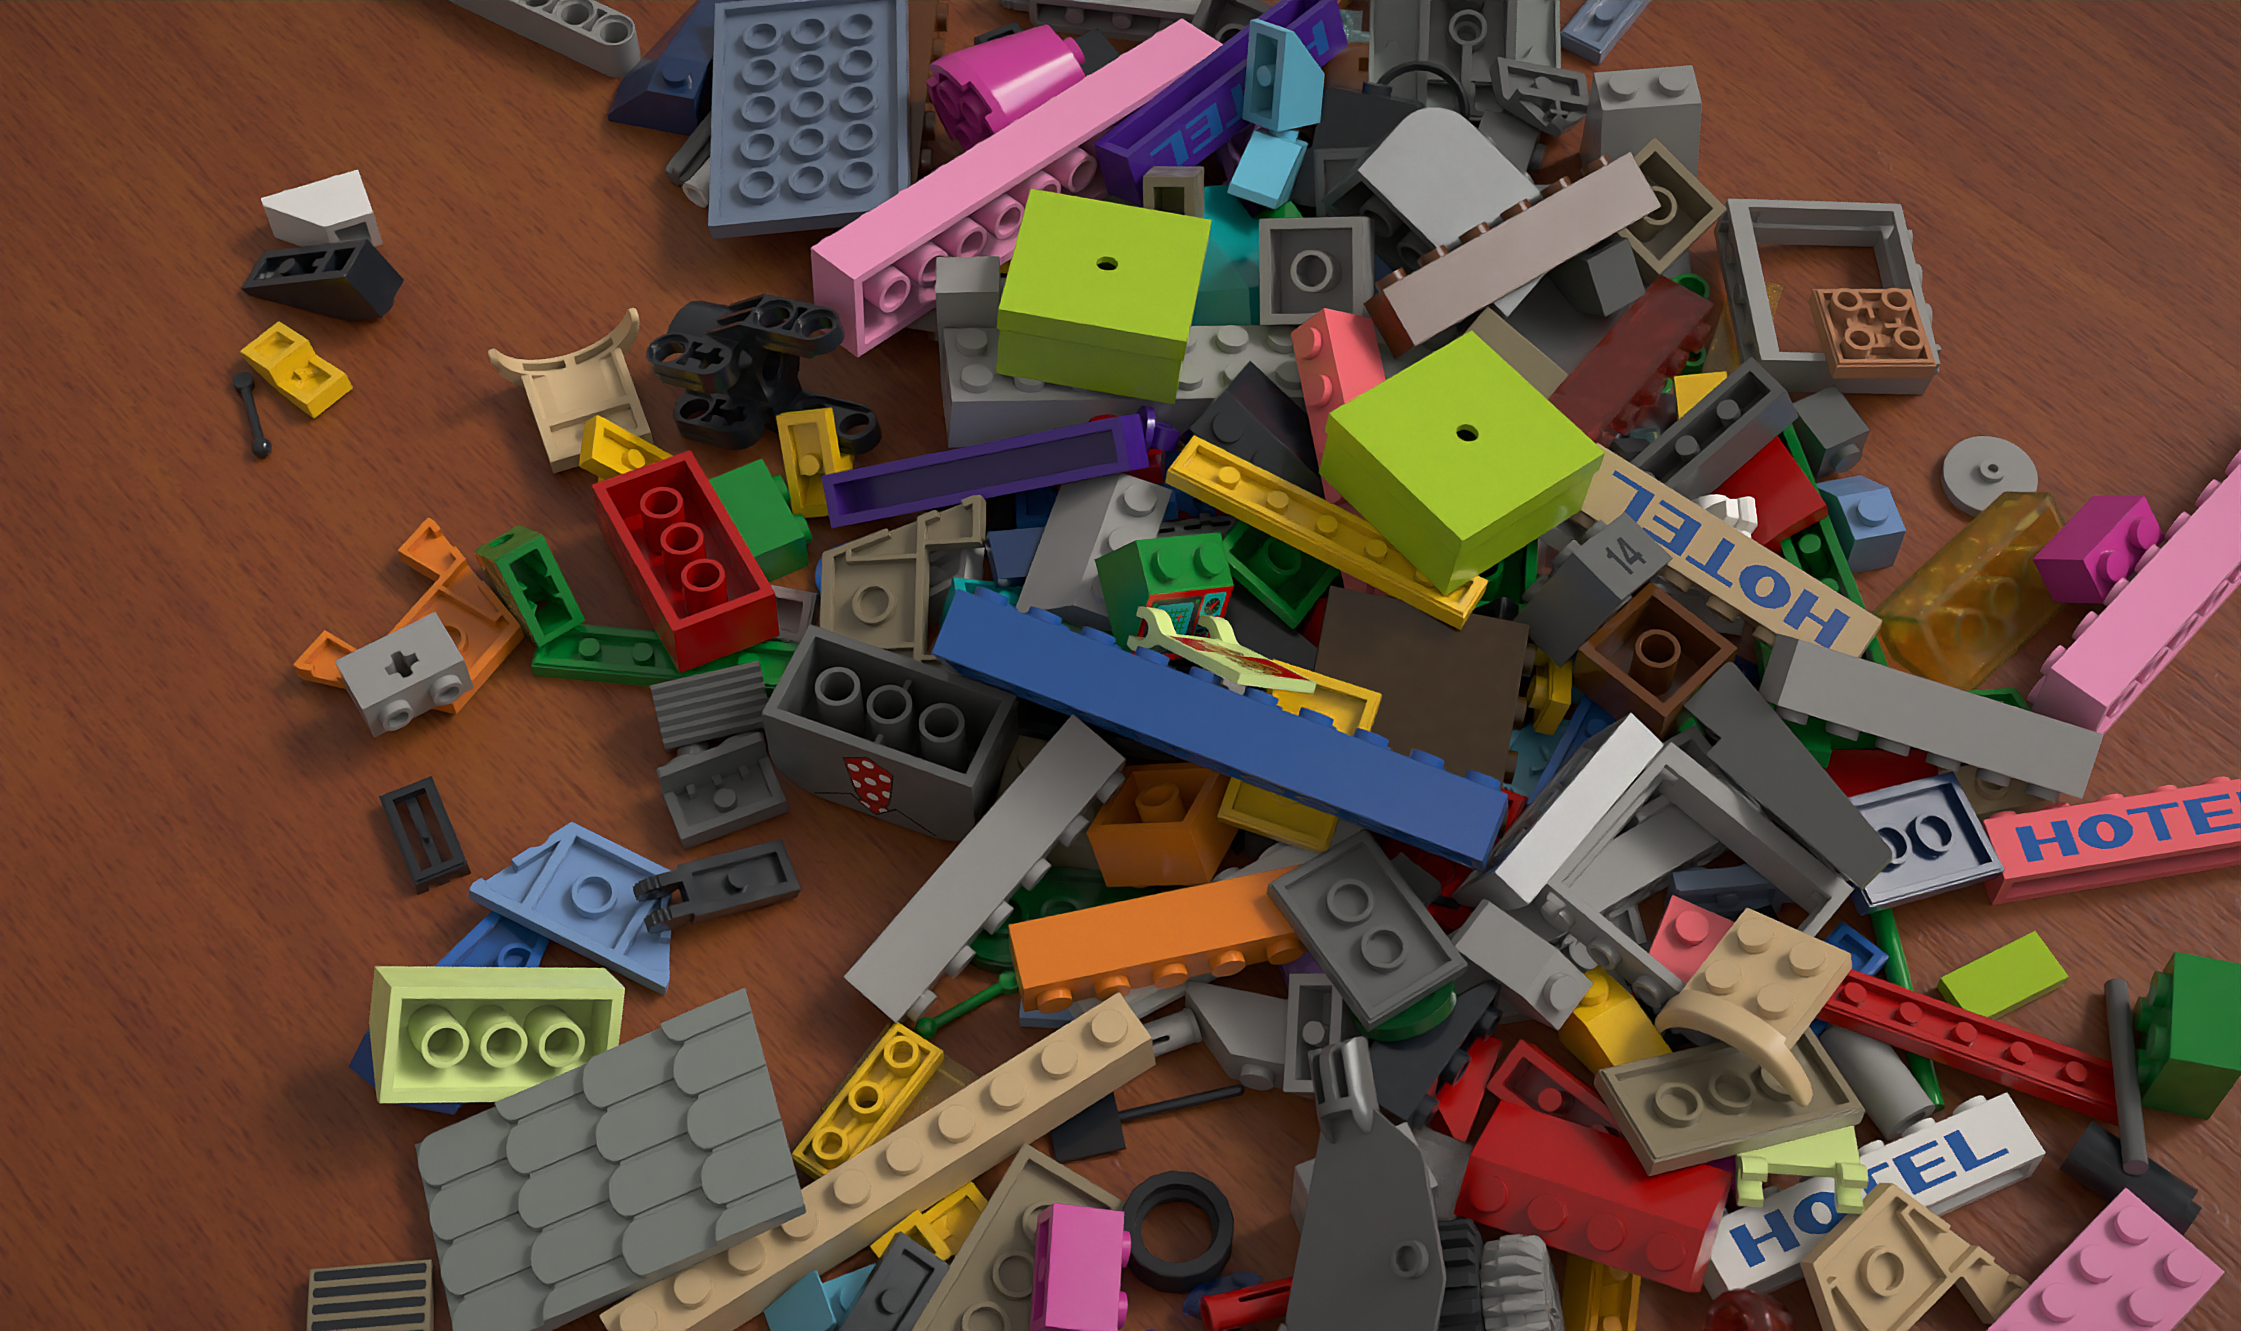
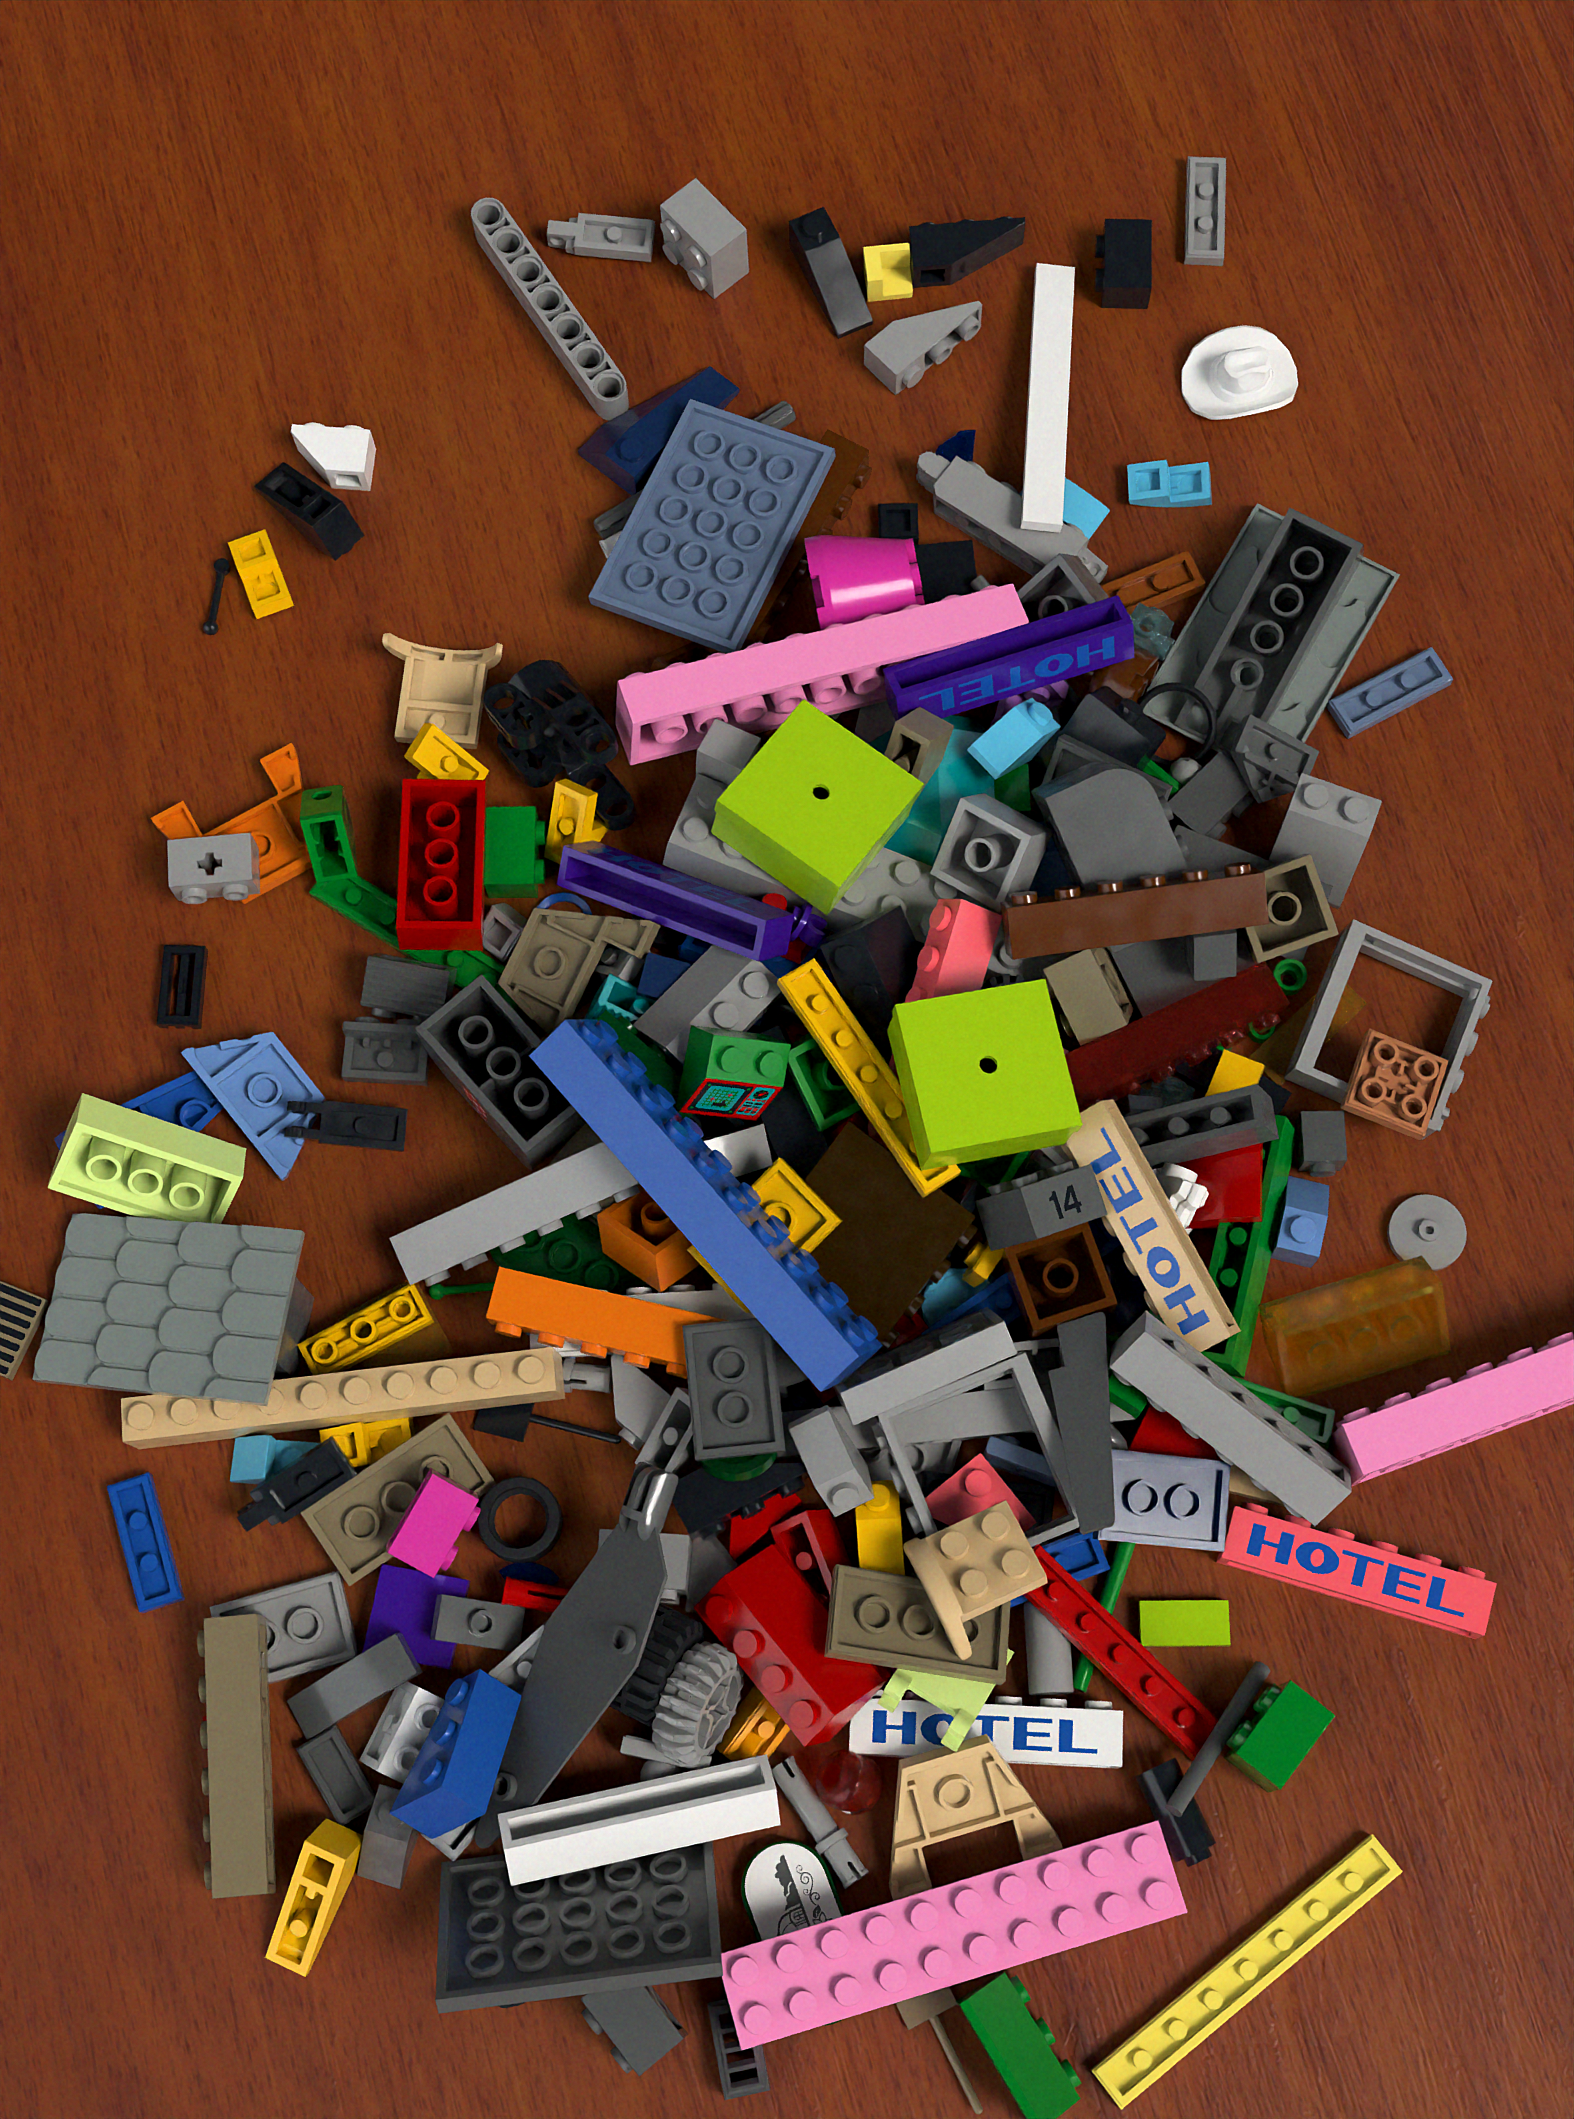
camera: 30 degrees right, 15 degrees up
(1218, 653) = (736, 1145): yellowish green flag -> none
(1280, 80) = (1050, 680): medium azure slope -> none
(2098, 548) = (1455, 1339): dark pink brick -> none

